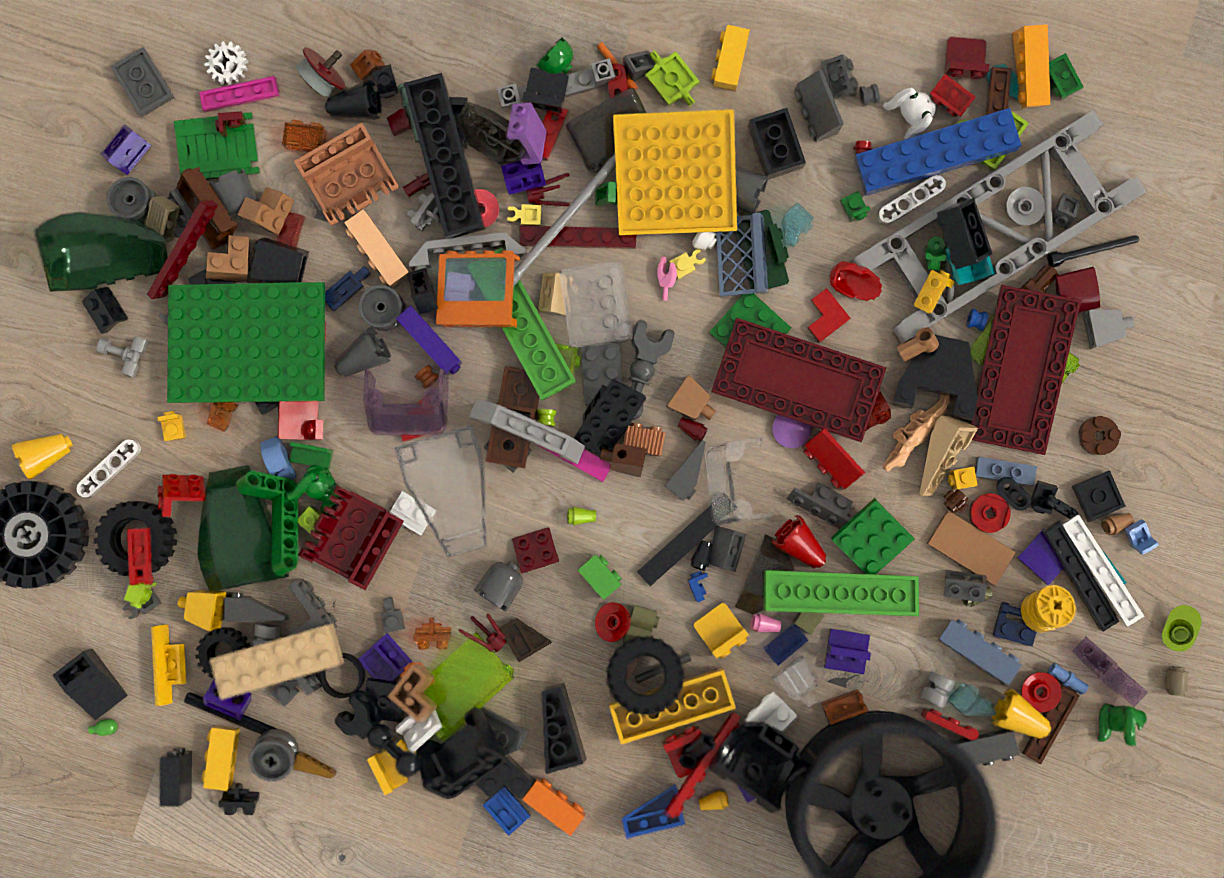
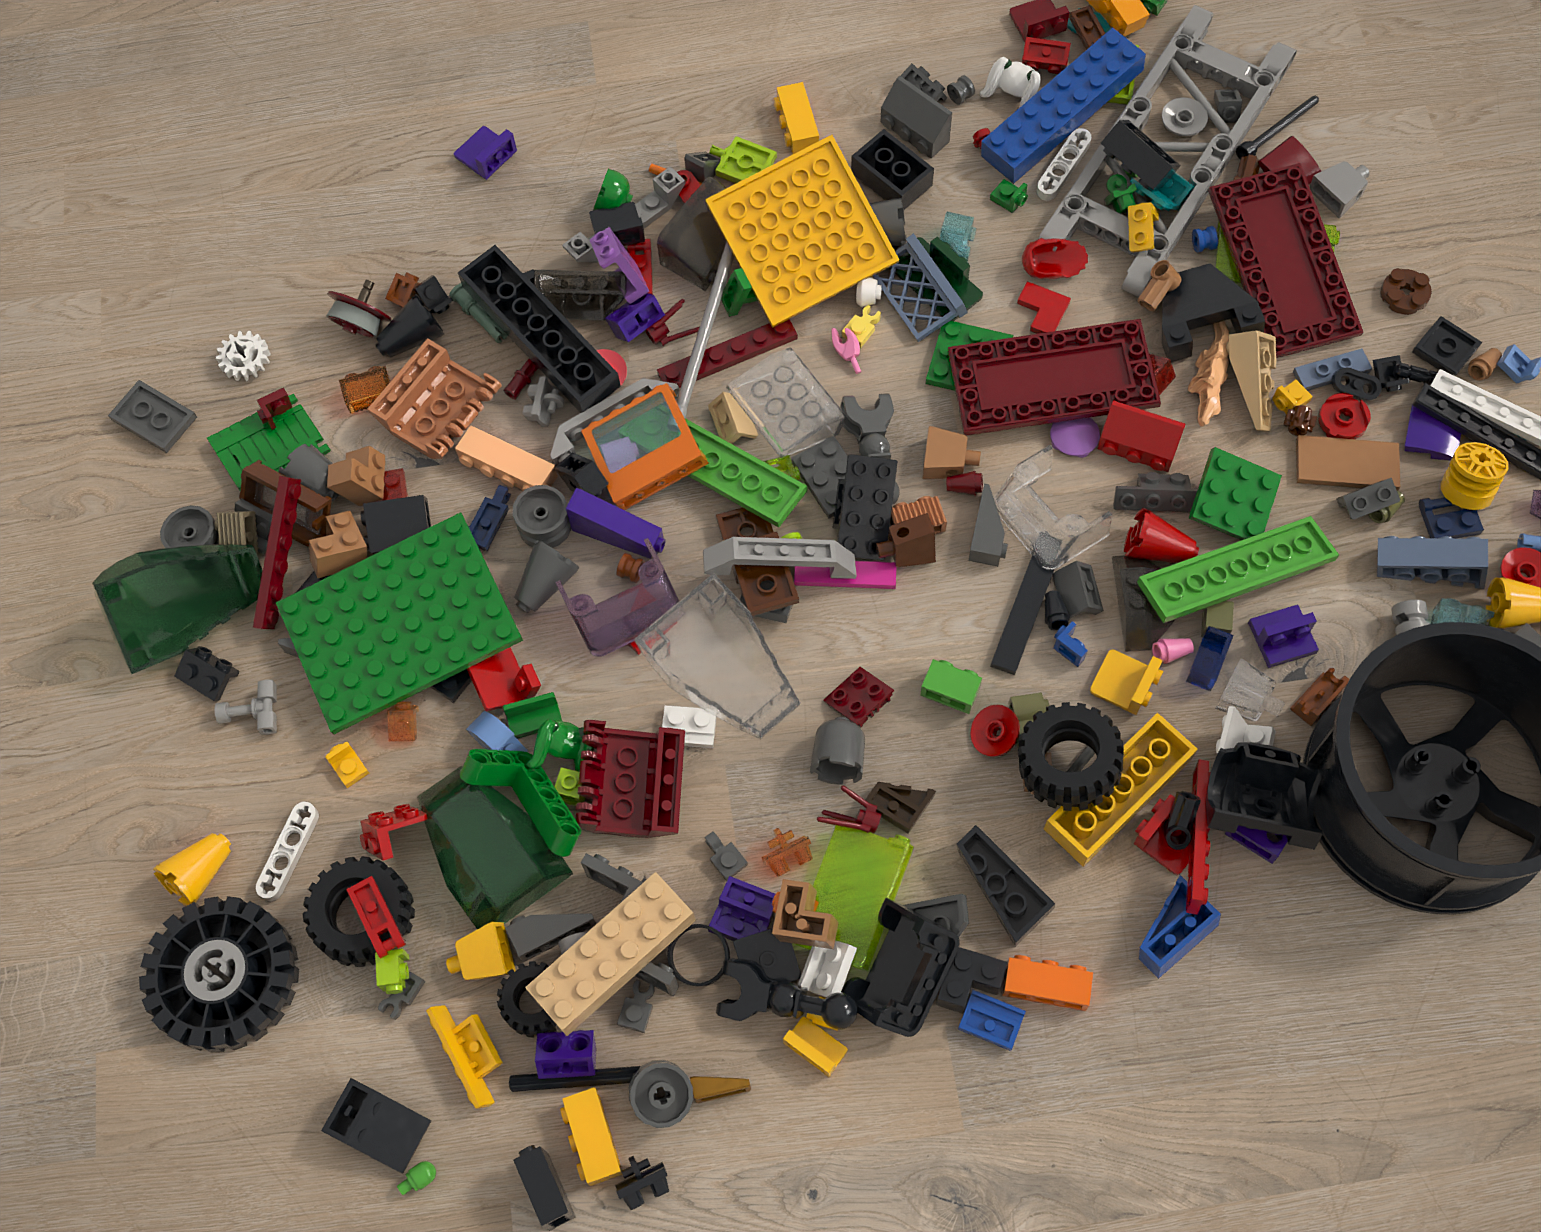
camera: 25 degrees left, 20 degrees down
(125, 149) = (161, 489): bracket -> none
(239, 94) = (273, 379): dark pink tile -> none
(399, 122) = (468, 330): dark red slope -> none
(529, 215) = (659, 354): light yellow plate -> none
(580, 515) = (889, 634): lime cone -> none
(714, 801) = (1238, 879): yellow cone -> none

